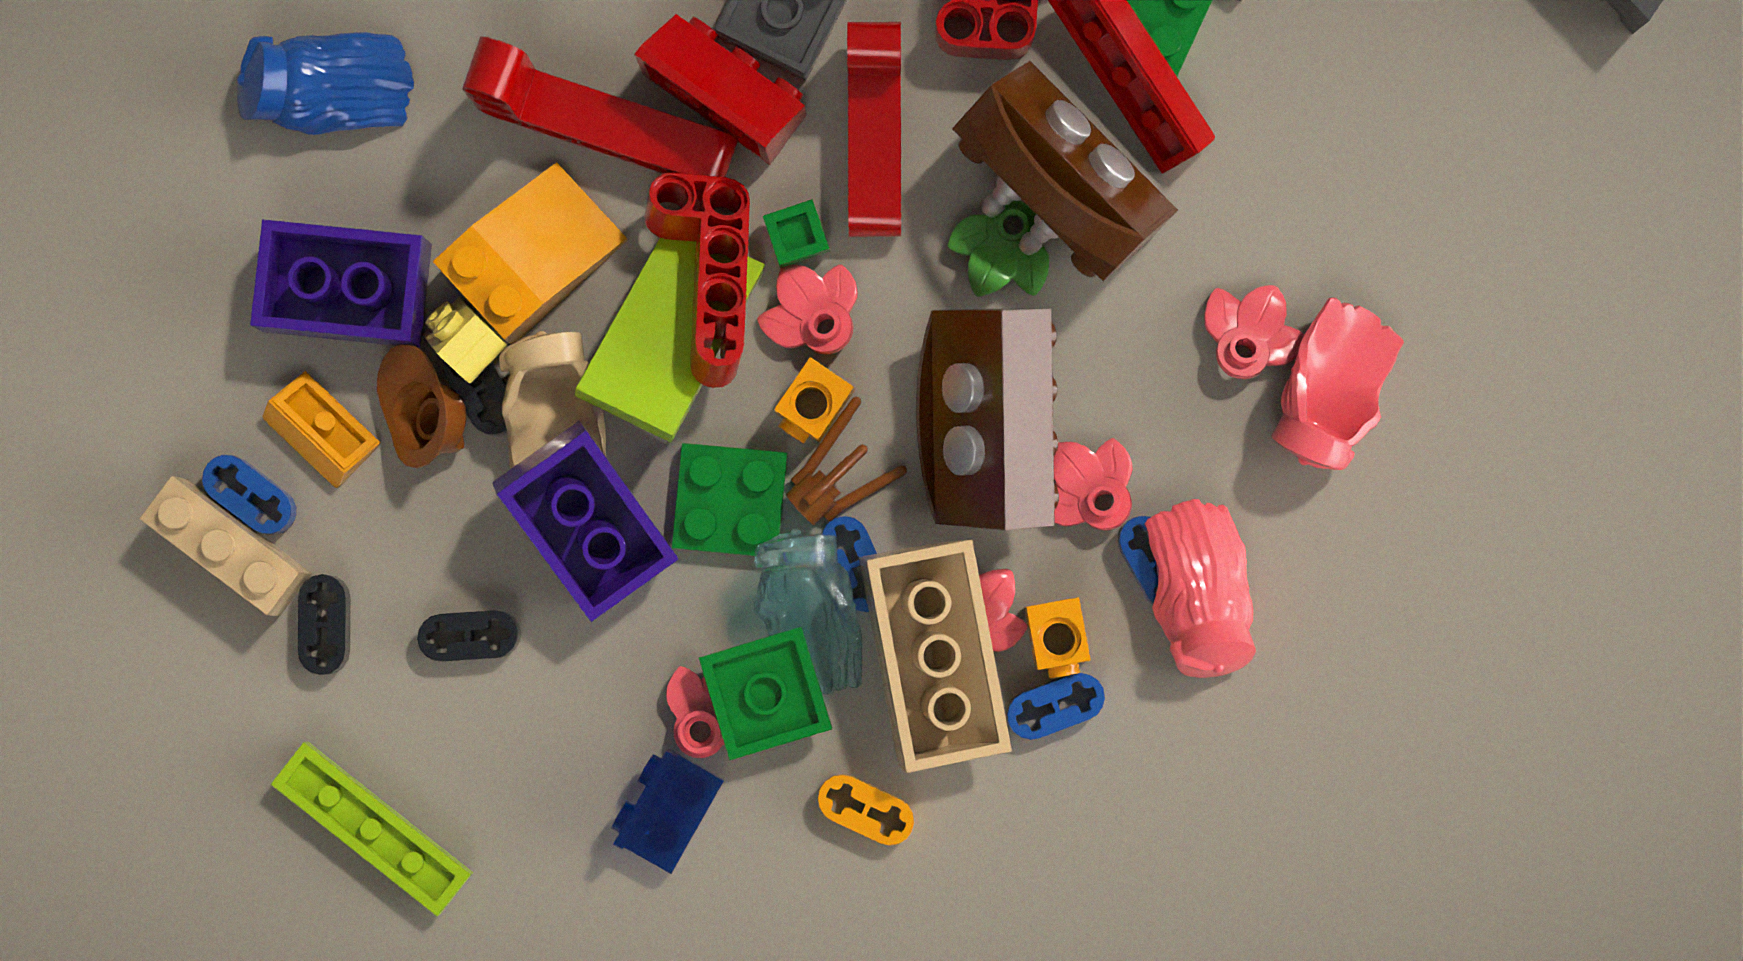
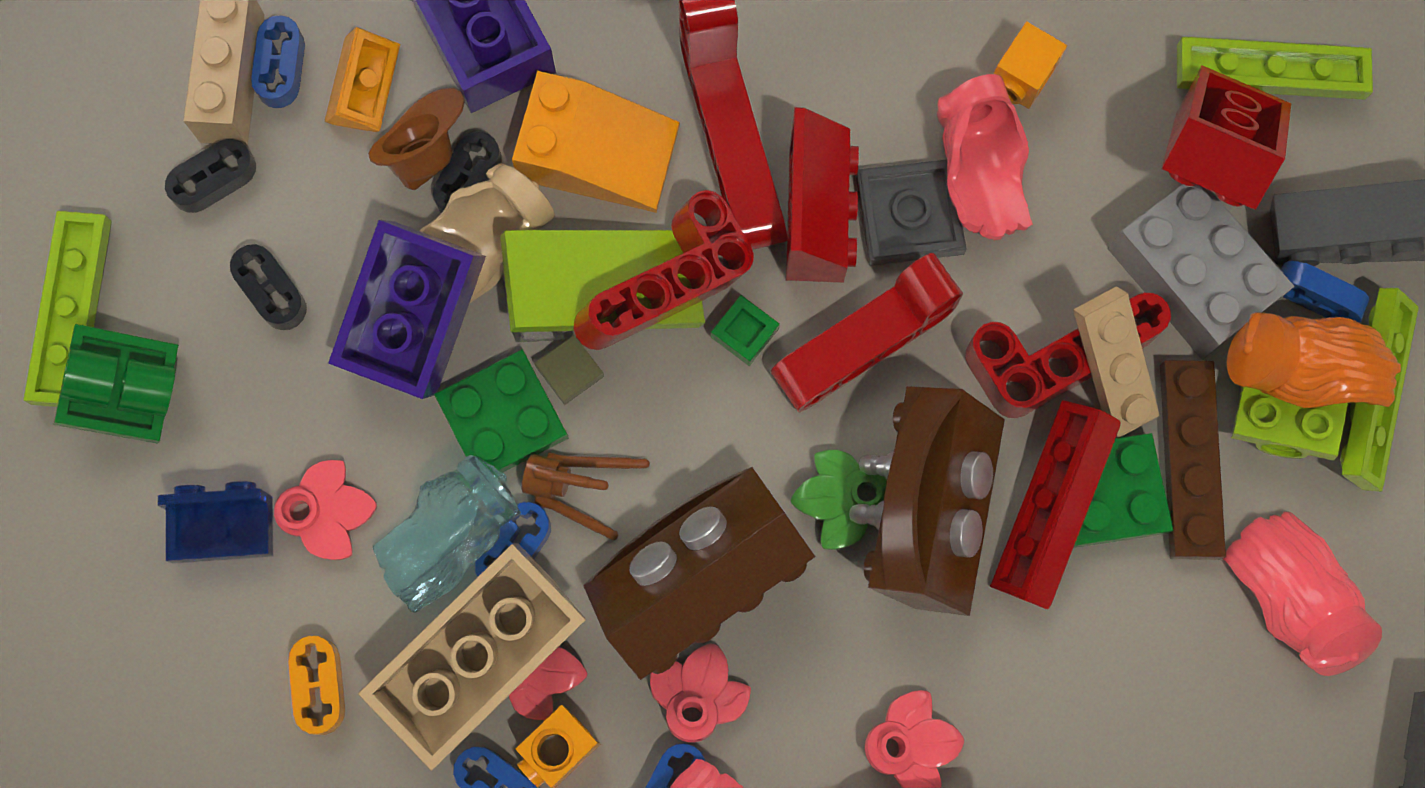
camera: 50 degrees right, 10 degrees down
(462, 338) = (490, 132): light yellow plate -> none
(479, 822) = (116, 384): none -> green plate
(727, 413) = (569, 369): none -> olive tile
(765, 693) = (358, 540): green plate -> none
(807, 302) = (696, 375): coral plate -> none
(813, 378) = (636, 443): light orange brick -> none

